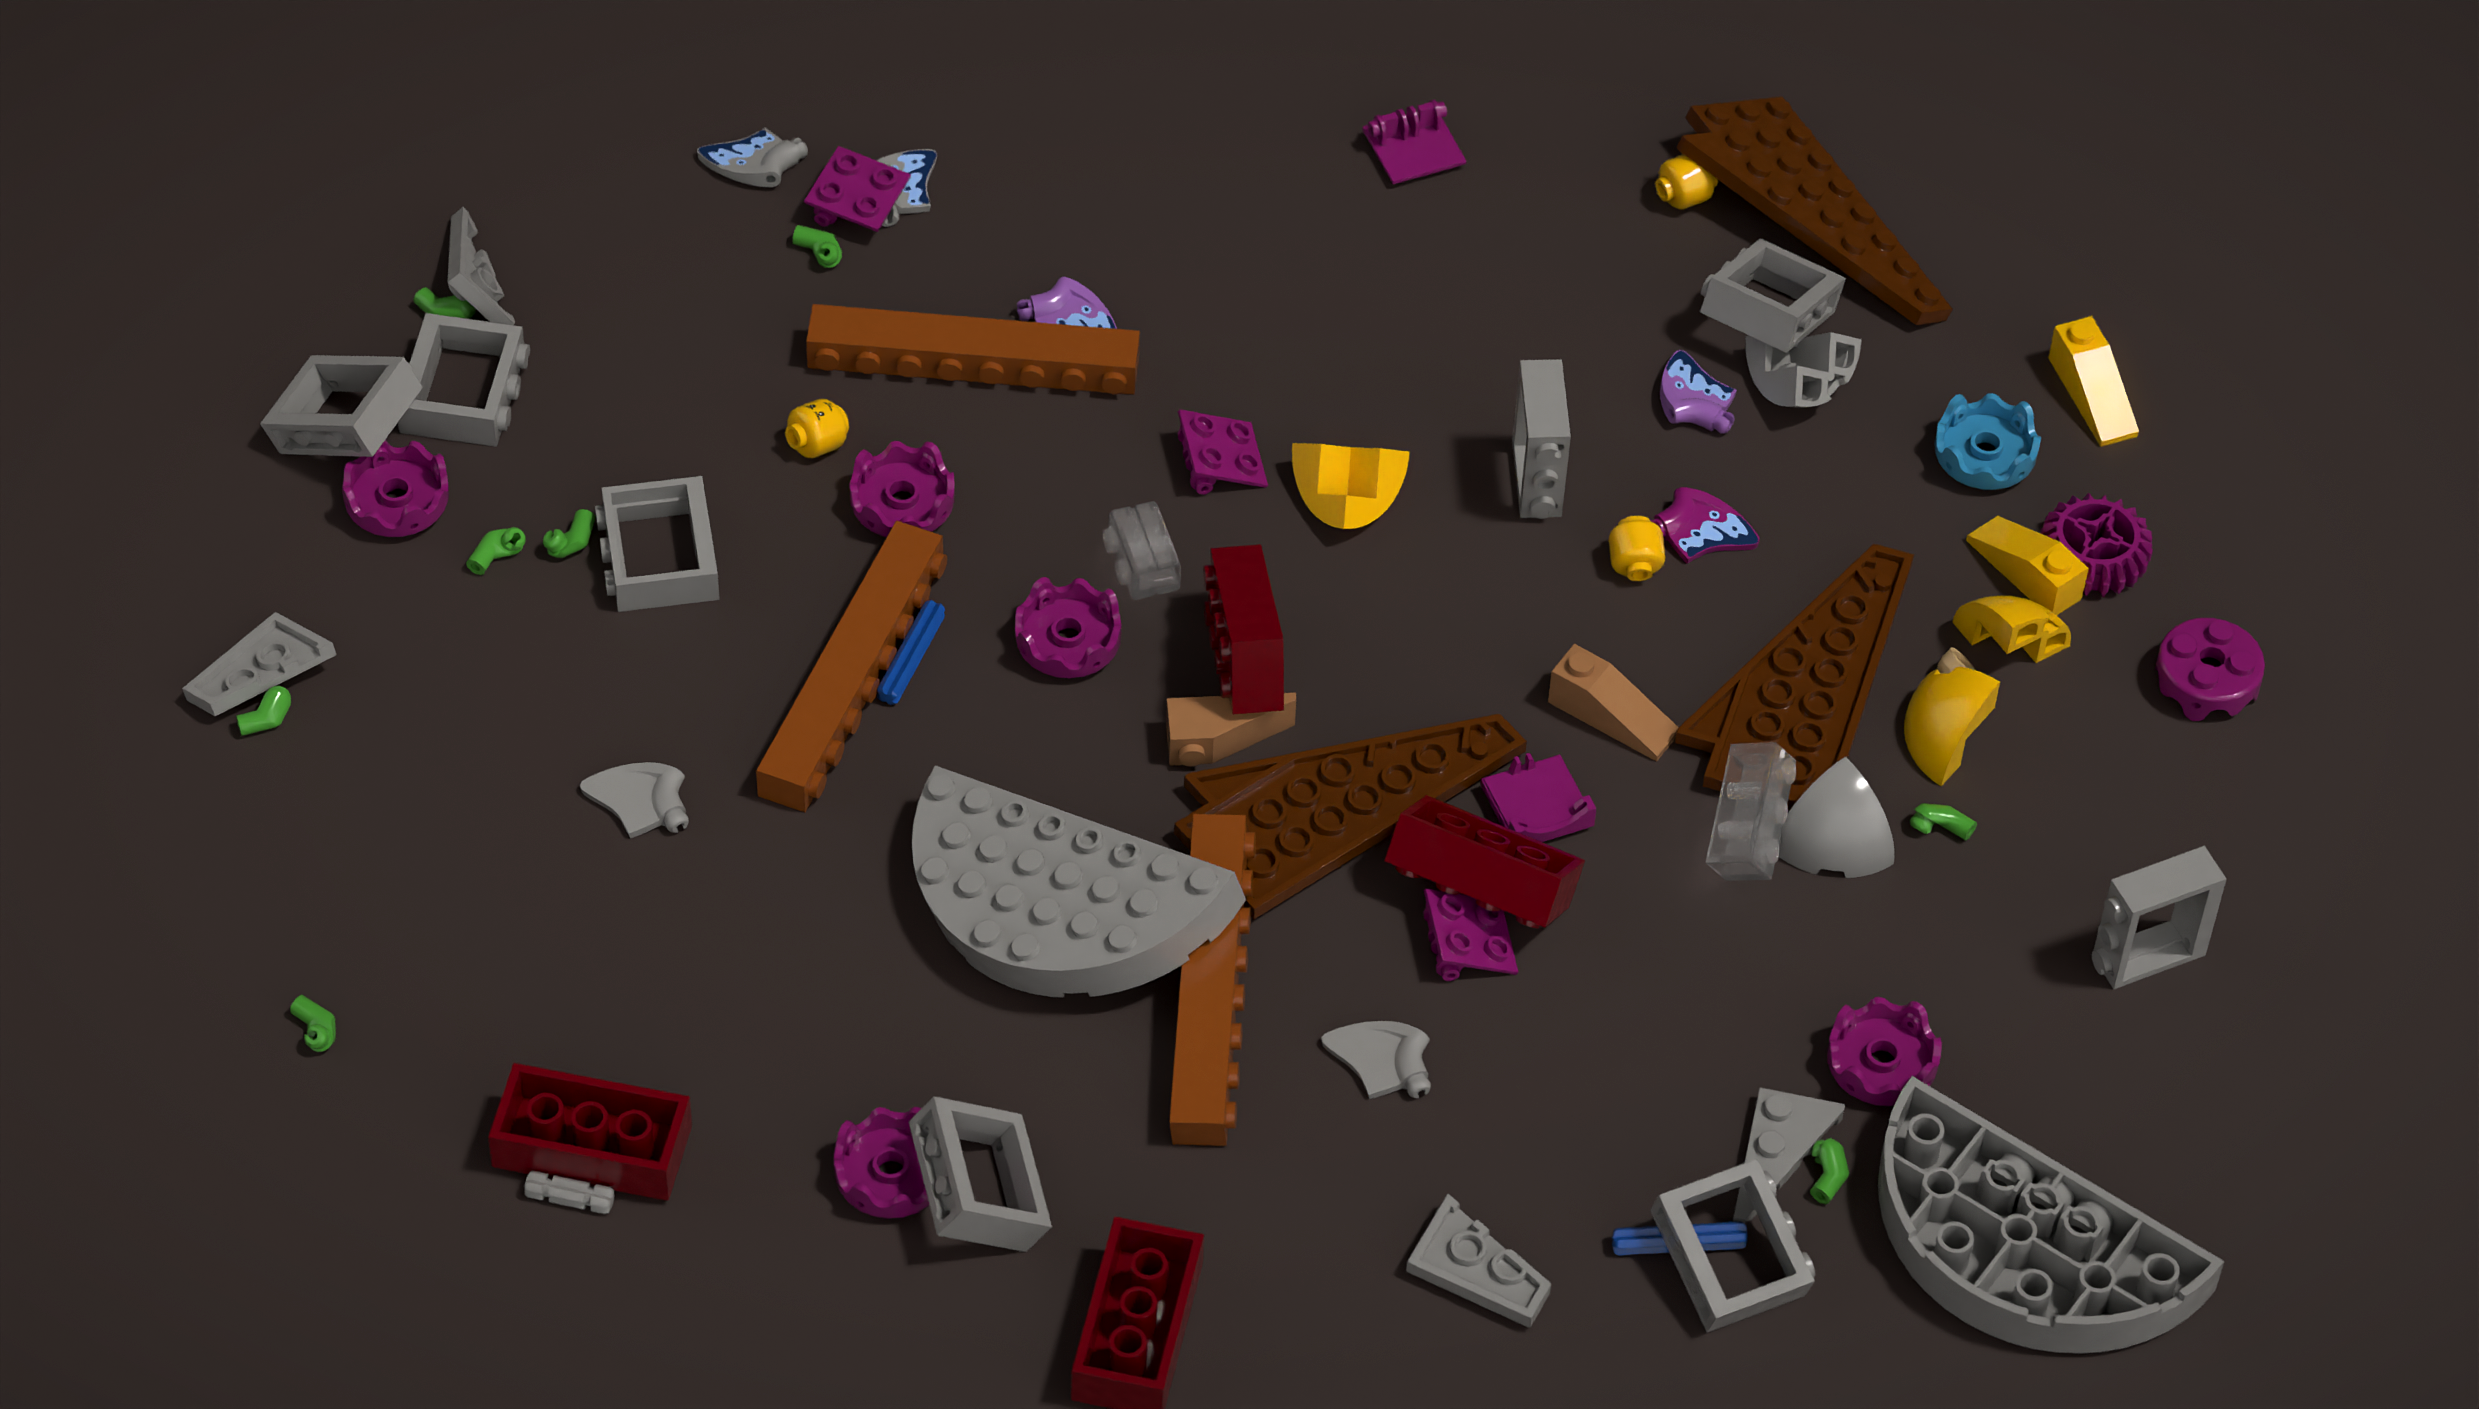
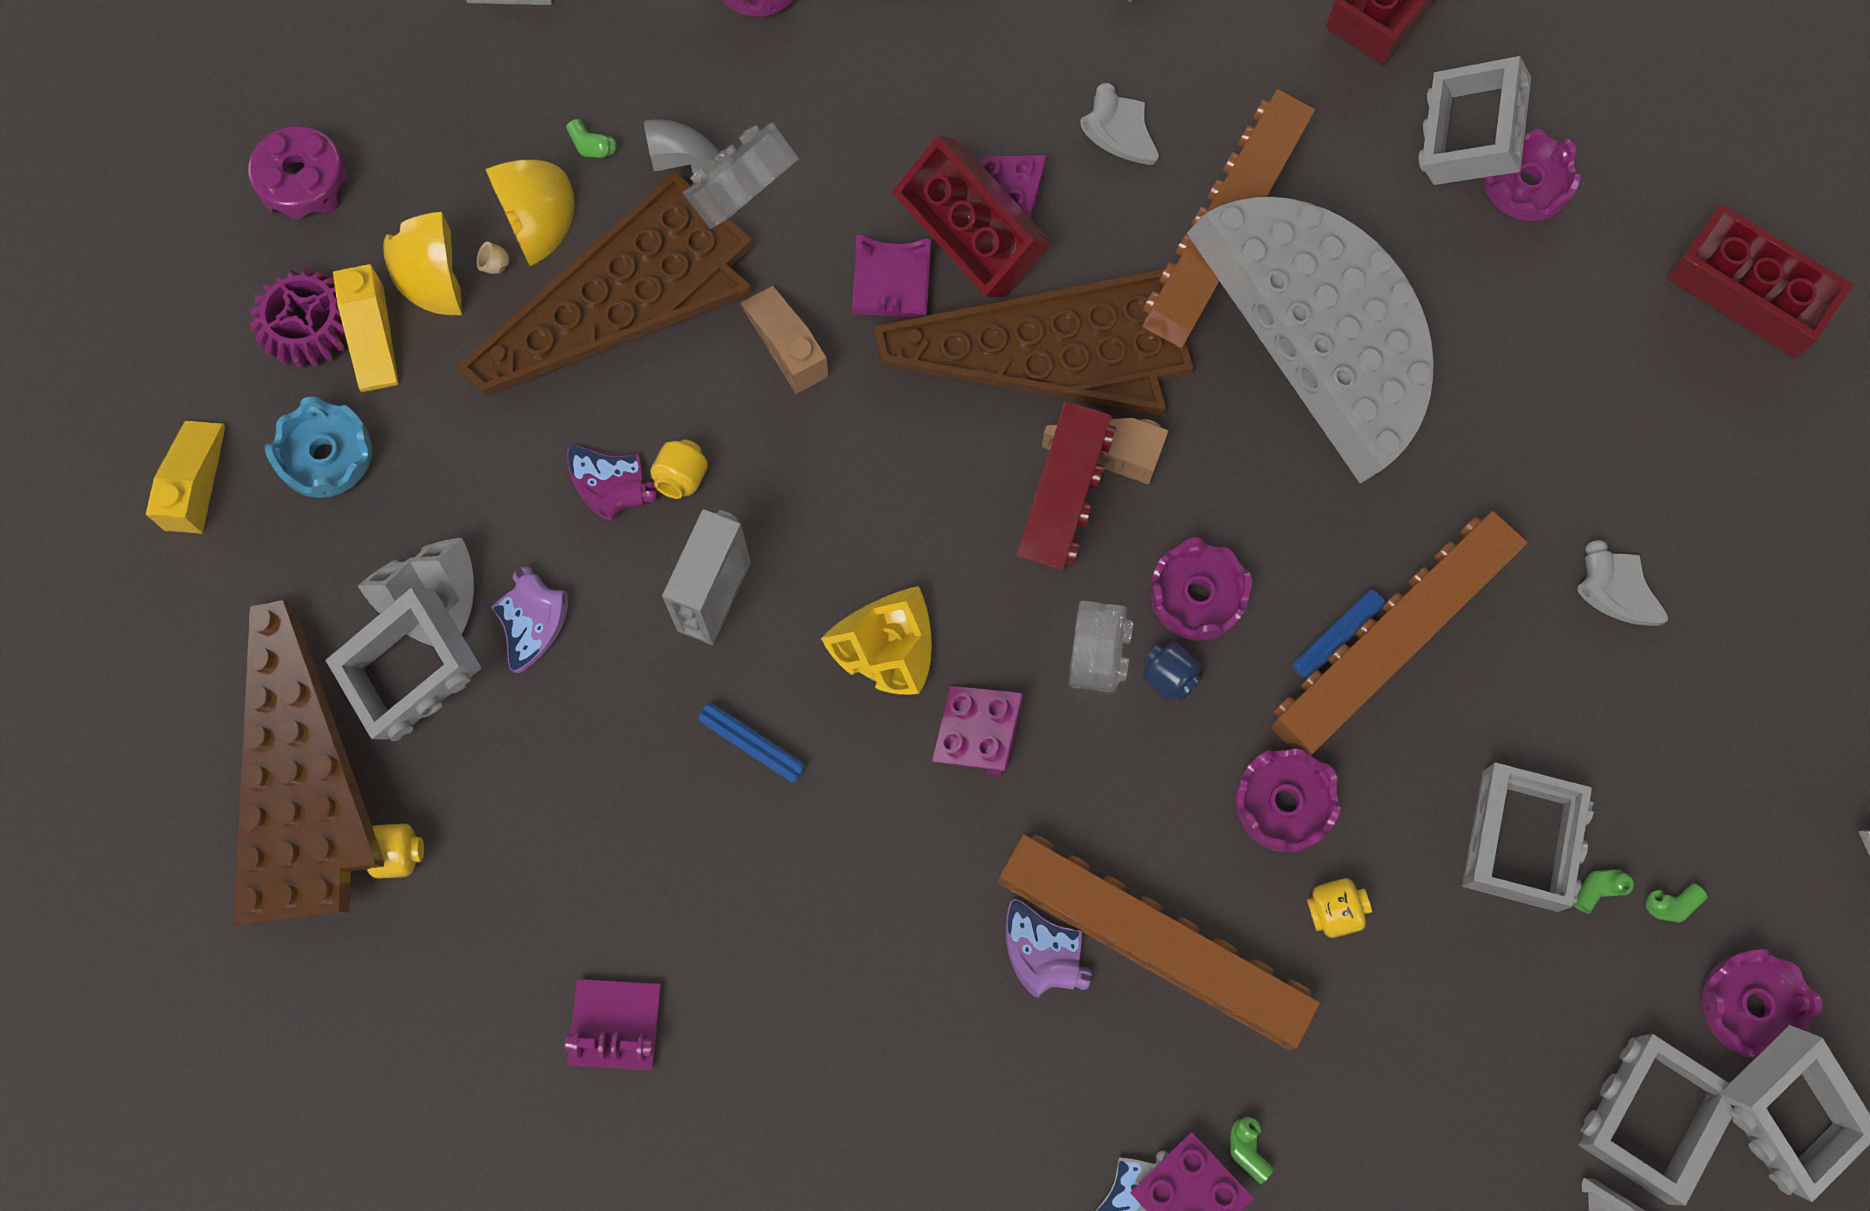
camera: 155 degrees left, 20 degrees up
(1061, 556) = (1171, 671): none -> dark blue head
(1425, 372) = (751, 742): none -> blue axle

